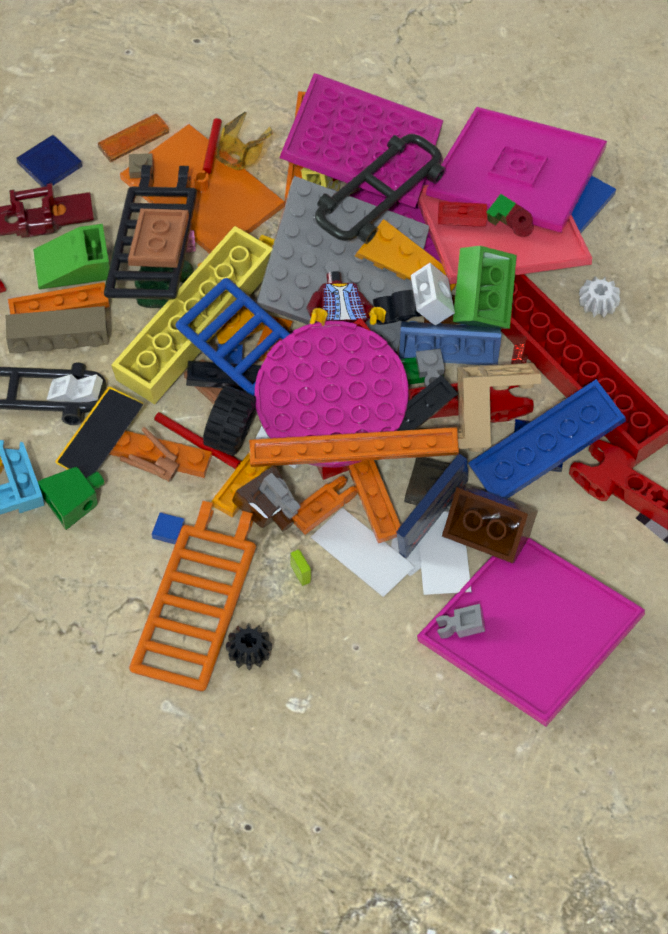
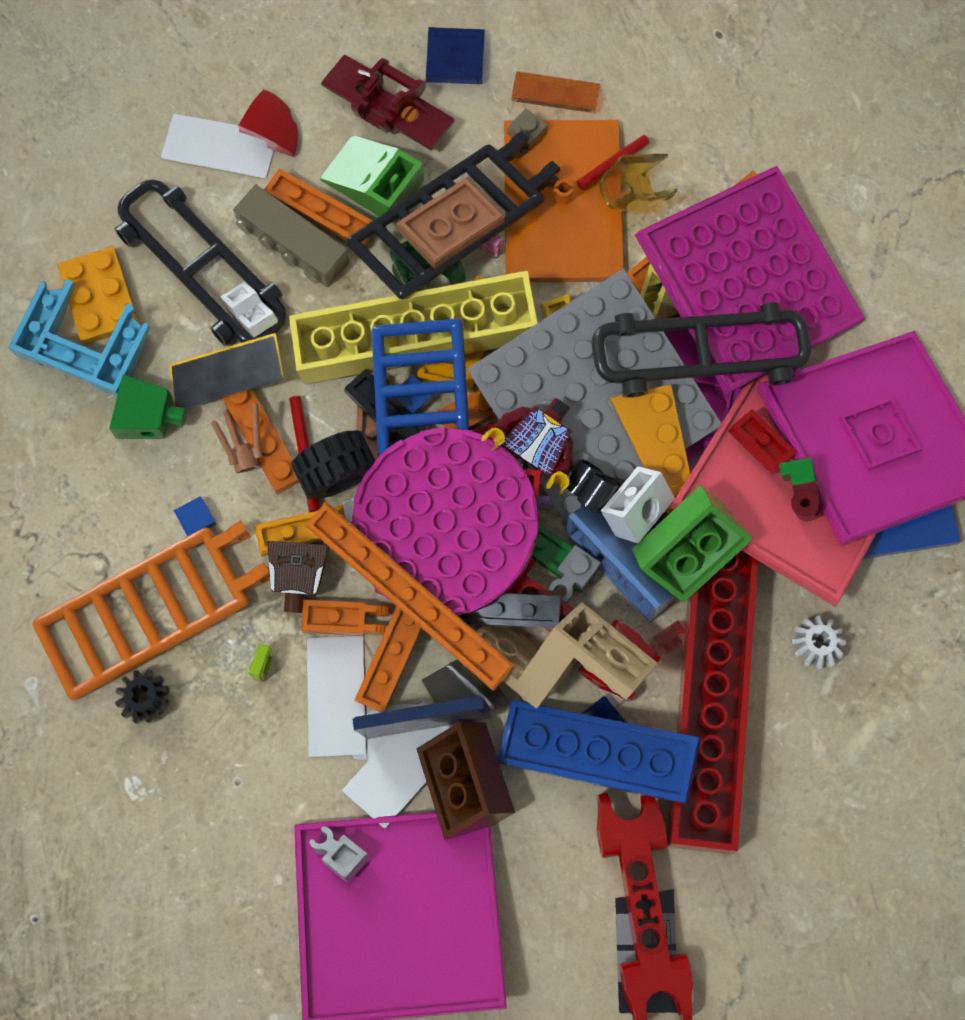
camera: 45 degrees right, 15 degrees up
(277, 493) = (298, 574): light grey plate -> none

